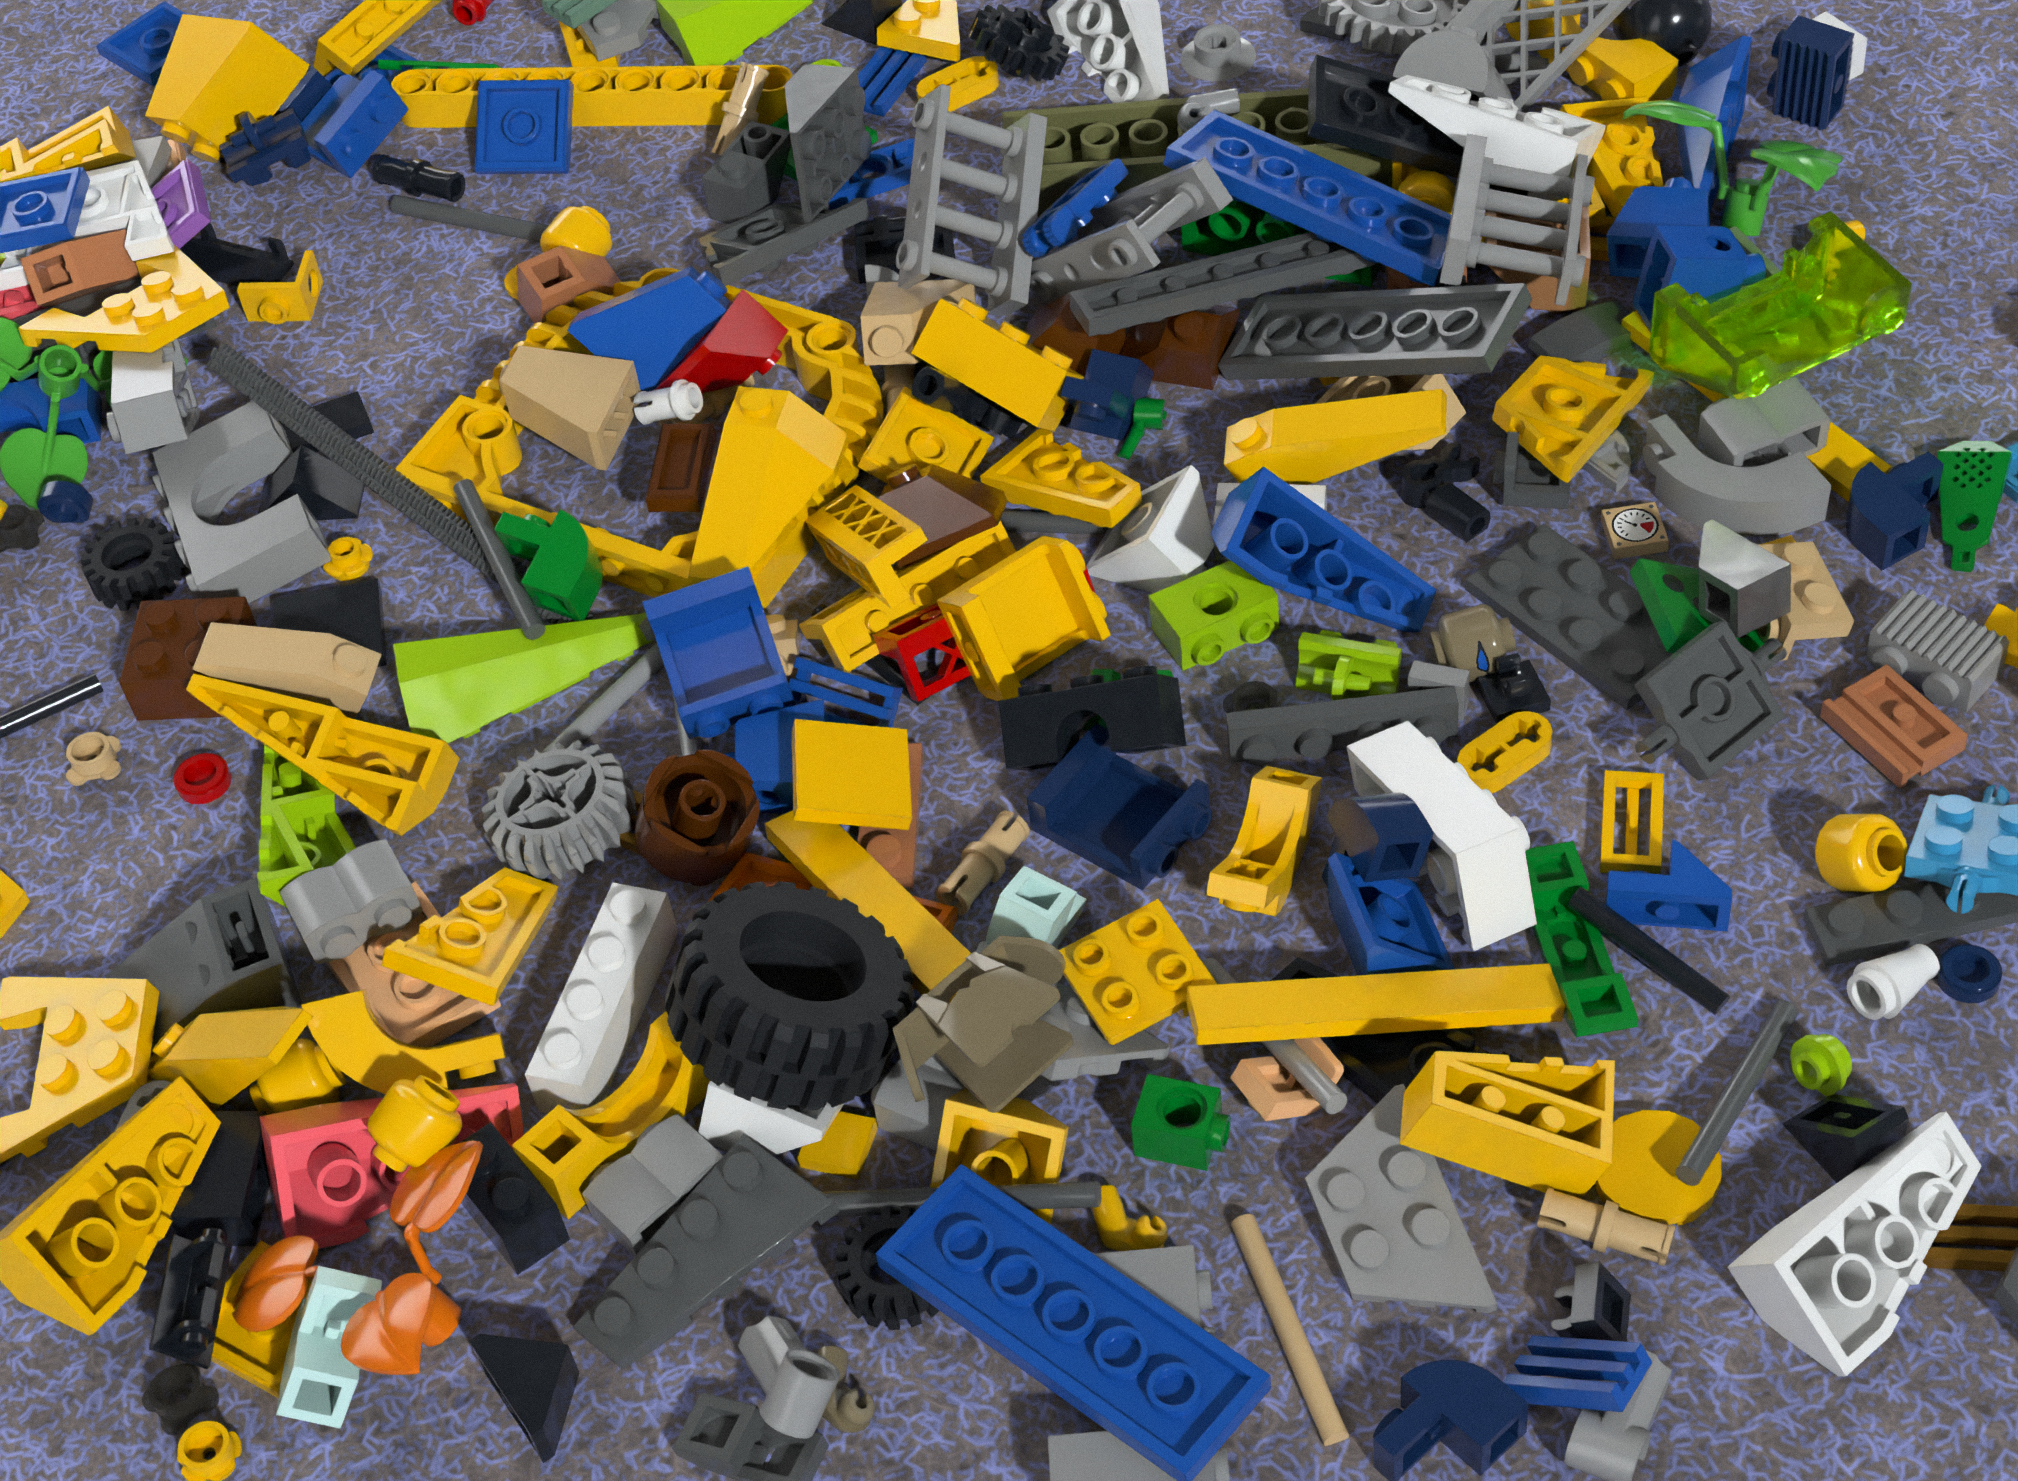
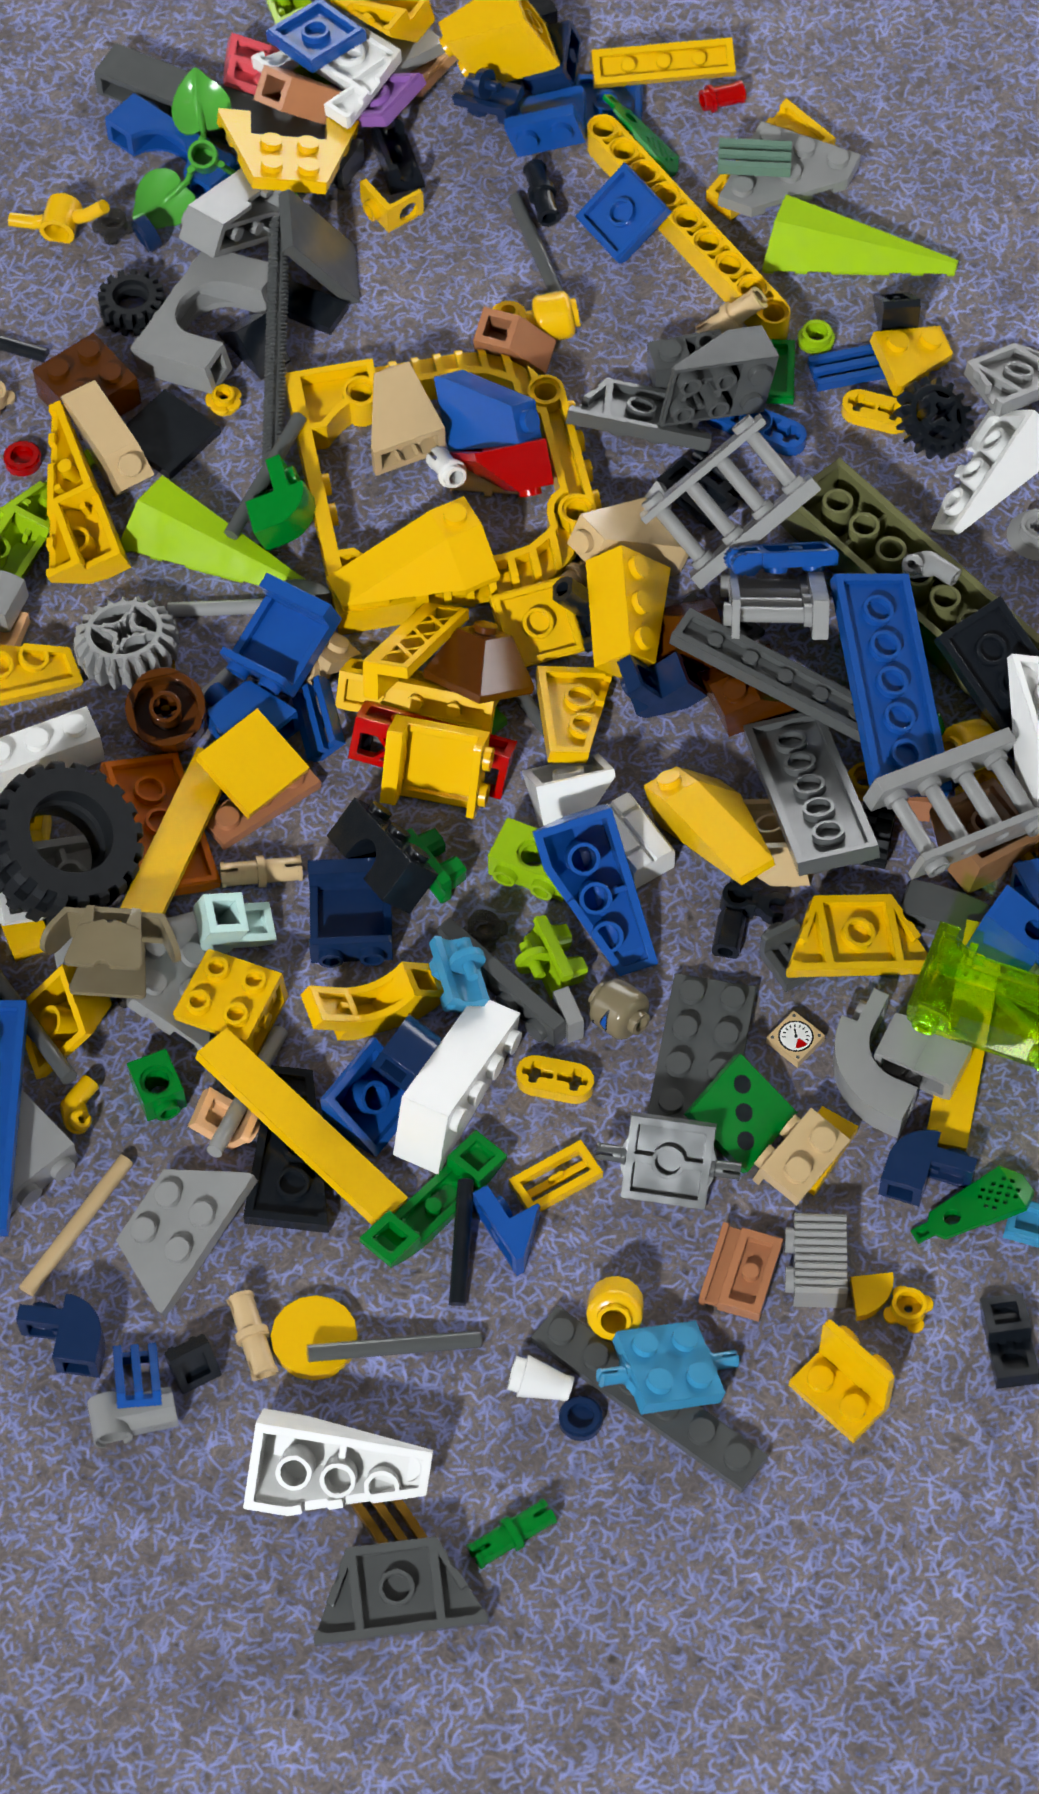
camera: 45 degrees right, 10 degrees up
(276, 355) = (318, 247): none -> dark grey tile
(681, 468) = (401, 509): reddish brown tile -> none
(1147, 415) = (669, 715): green hand -> none
(1316, 728) = (458, 969): none -> dark azure hips
(1512, 688) = (608, 1054): black tile -> none
(1514, 1118) = (270, 1243): yellow wedge -> none
(1611, 462) = (846, 991): light grey tile -> none
(1740, 581) = (758, 1115): flat silver slope -> none
(1821, 1063) = (446, 1376): lime plate -> none
(1847, 1131) = (404, 1415): black slope -> none

